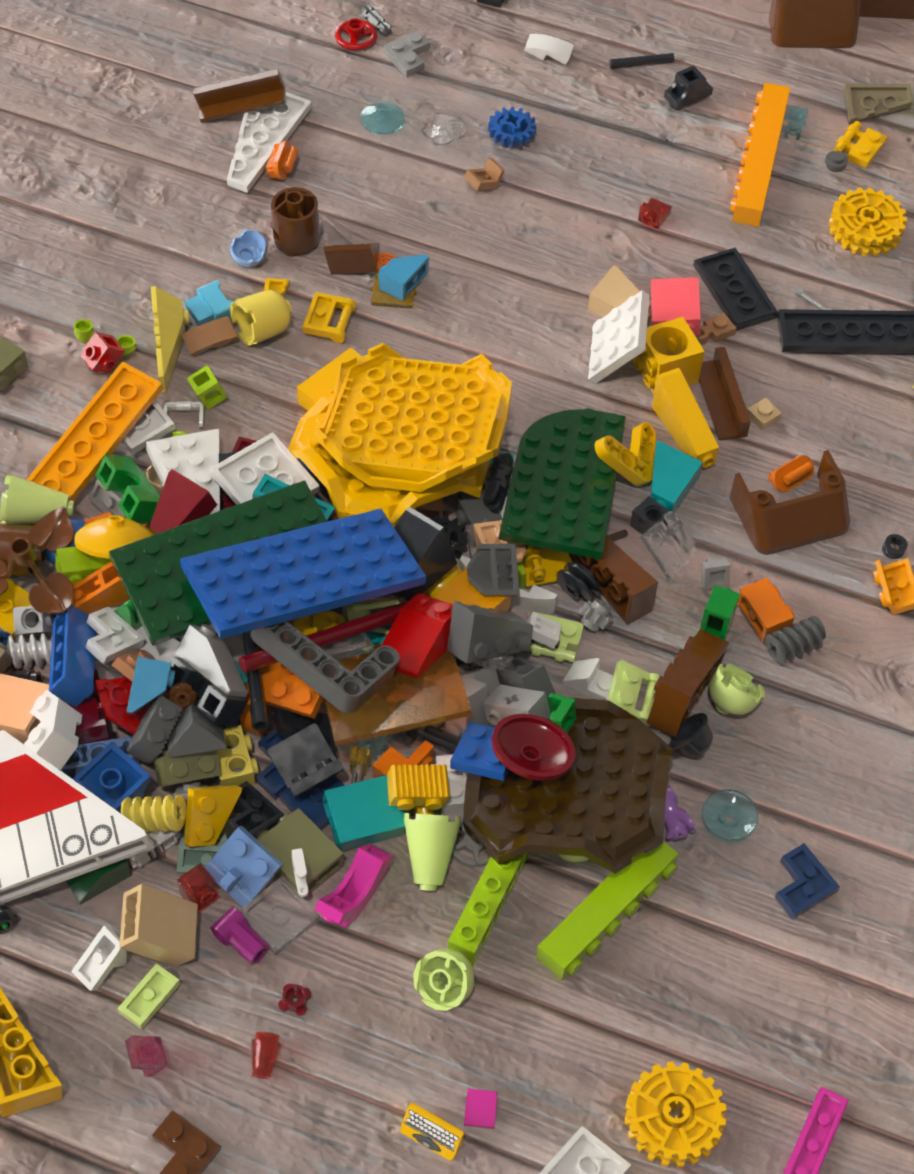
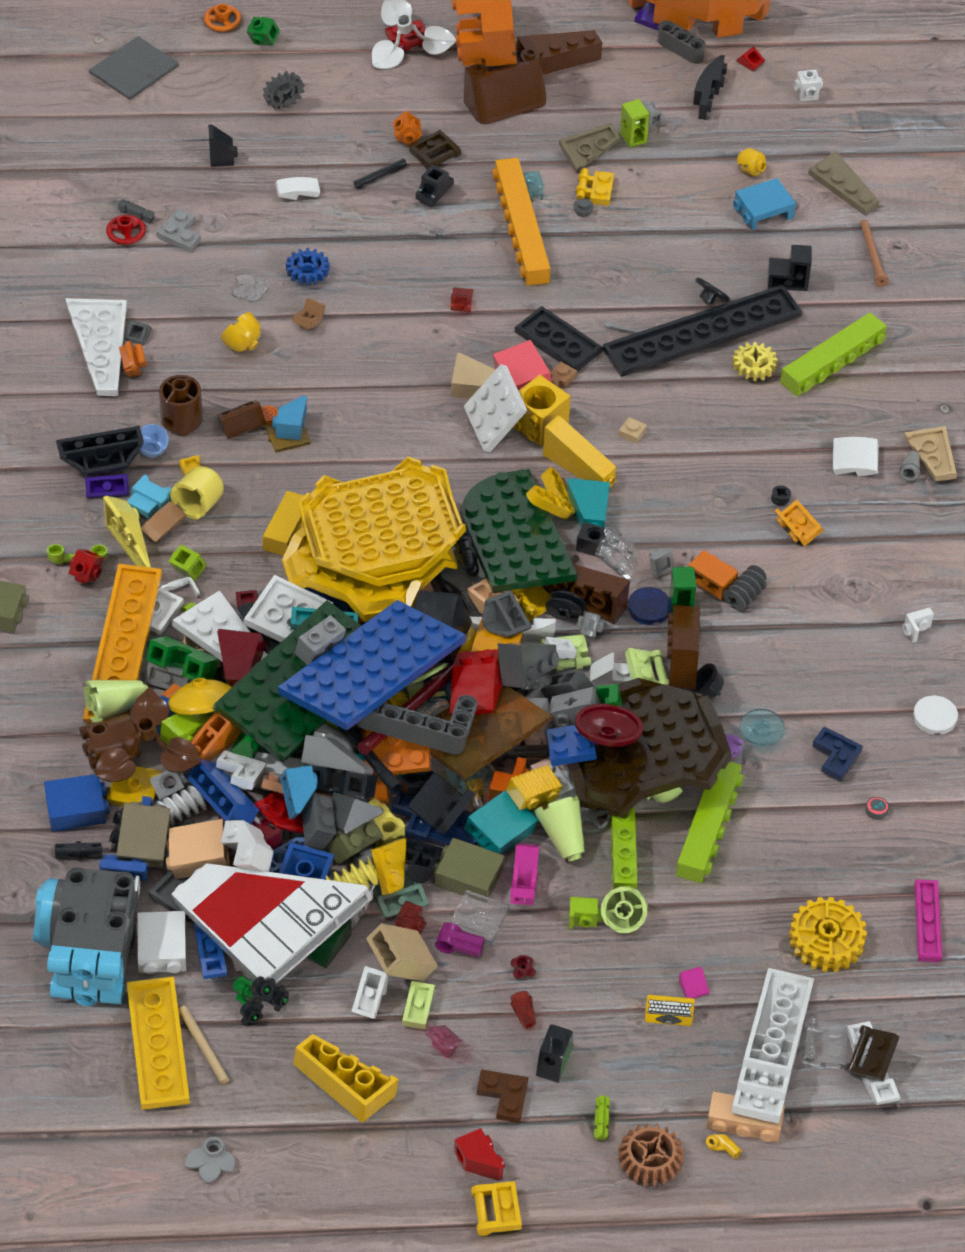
camera: 25 degrees left, 5 degrees down
(179, 279) = (107, 486): none -> dark purple slope
(182, 689) = (326, 783): reddish brown plate -> none
(188, 240) = (102, 450): none -> black wedge
(240, 95) = (66, 316): reddish brown panel -> none
(243, 866) = (437, 892): medium blue hinge -> none
(261, 521) = (319, 639): none -> light grey brick
(265, 1128) = (556, 1045): none -> black torso
(300, 871) = (480, 865): white piece -> none
(305, 137) = (137, 332): none -> dark grey slope
(321, 315) = (243, 476): yellow plate -> none
(382, 118) = (191, 294): clear light blue dish -> none
(397, 960) = (584, 912): none -> lime brick
(404, 171) = (242, 334): none -> yellow cylinder
(676, 618) = (649, 605): none -> clear blue tile
(692, 24) = (407, 128): none -> orange brick
(708, 50) = (433, 145): none -> dark brown plate
(724, 397) = (597, 427): reddish brown panel -> none
(734, 691) = (720, 640): yellowish green cylinder -> none
(792, 473) = (677, 468): orange piece -> none
(798, 521) = (700, 504): reddish brown windscreen -> none
(820, 972) = (877, 808): none -> dark grey tile
(867, 222) = (634, 249): yellow piece -> none

